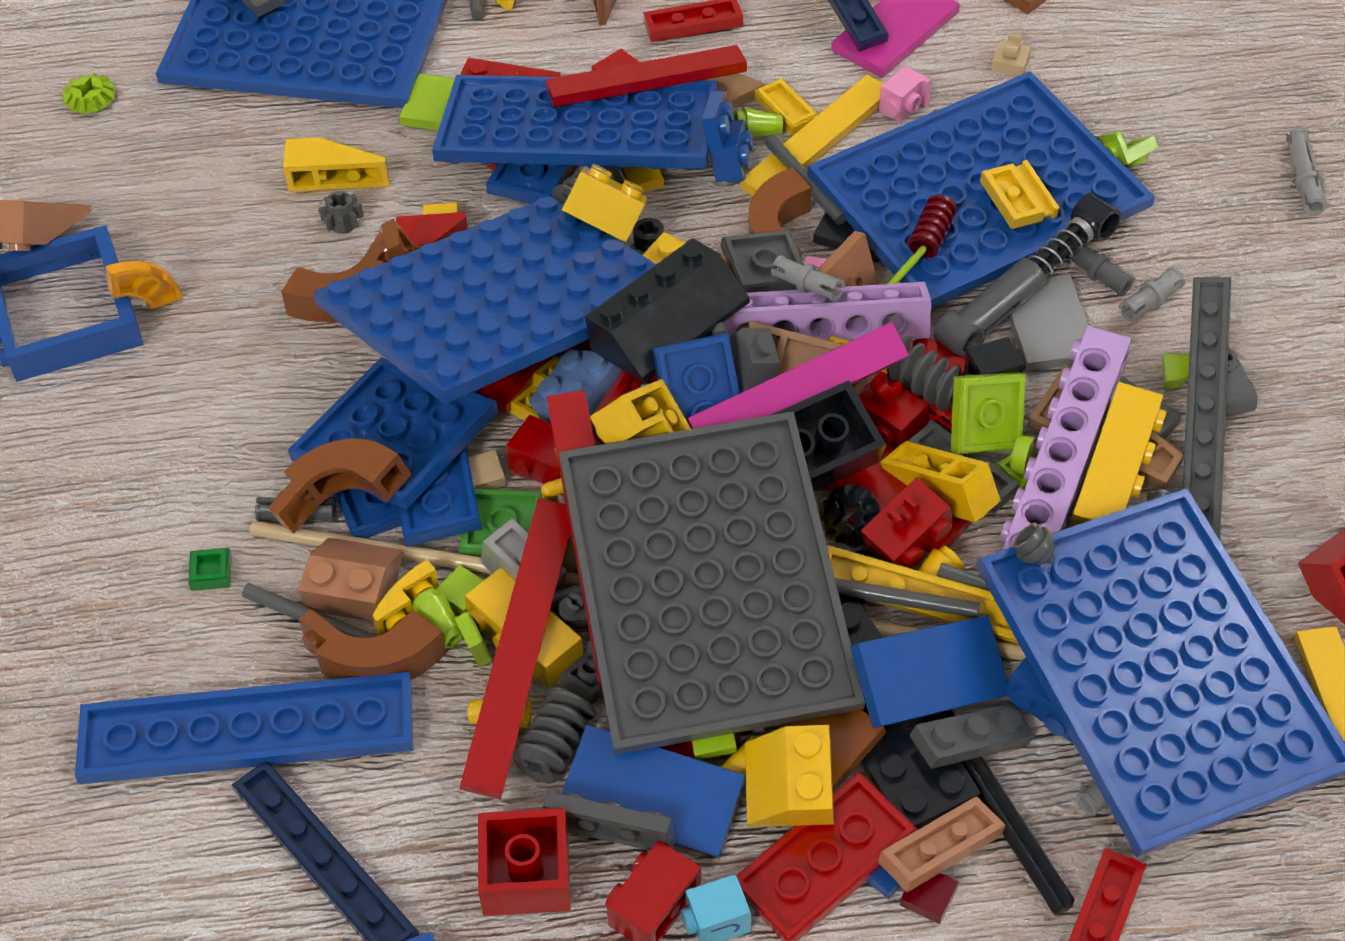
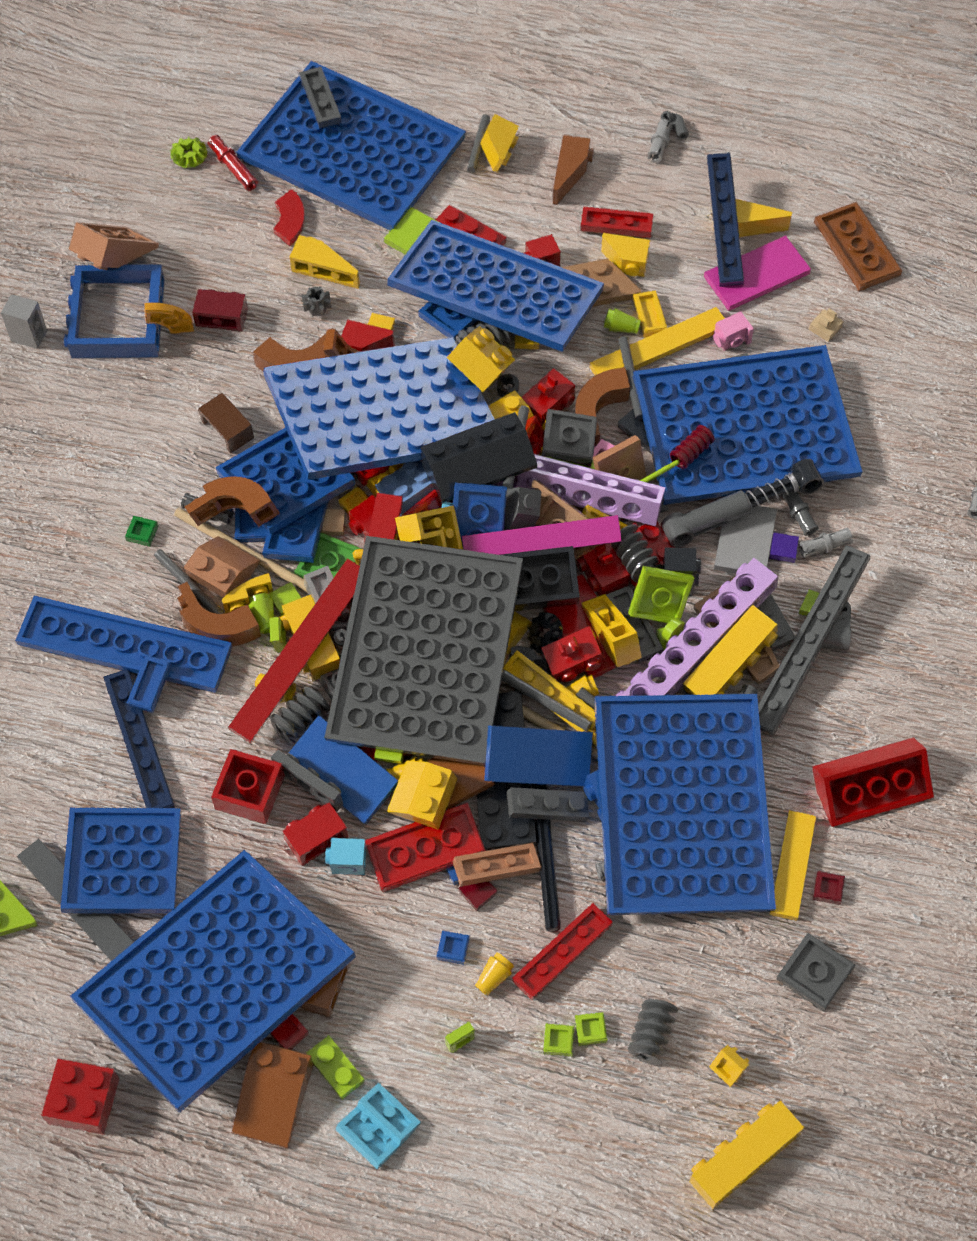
camera: 20 degrees right, 10 degrees up
(145, 83) = (227, 156): none -> red pin
(210, 259) = (220, 310): none -> dark red brick
(262, 128) = (291, 218): none -> red tile
(281, 387) = (227, 422): none -> reddish brown panel
(310, 768) = (149, 683): none -> blue tile
(499, 436) = (352, 499): none -> yellow tile
(645, 75) = (556, 264): red tile -> none
(711, 221) = (552, 393): none -> red brick
(722, 36) = (626, 253): none -> yellow slope
(726, 139) = (588, 331): blue plate -> none
(808, 278) = (586, 461): light grey pin -> none
(1019, 194) = (764, 441): yellow plate -> none
(1035, 545) = (631, 701): dark grey plate -> none
(1104, 314) = (784, 547): none -> dark purple tile
(1128, 153) = (867, 430): lime bracket -> none

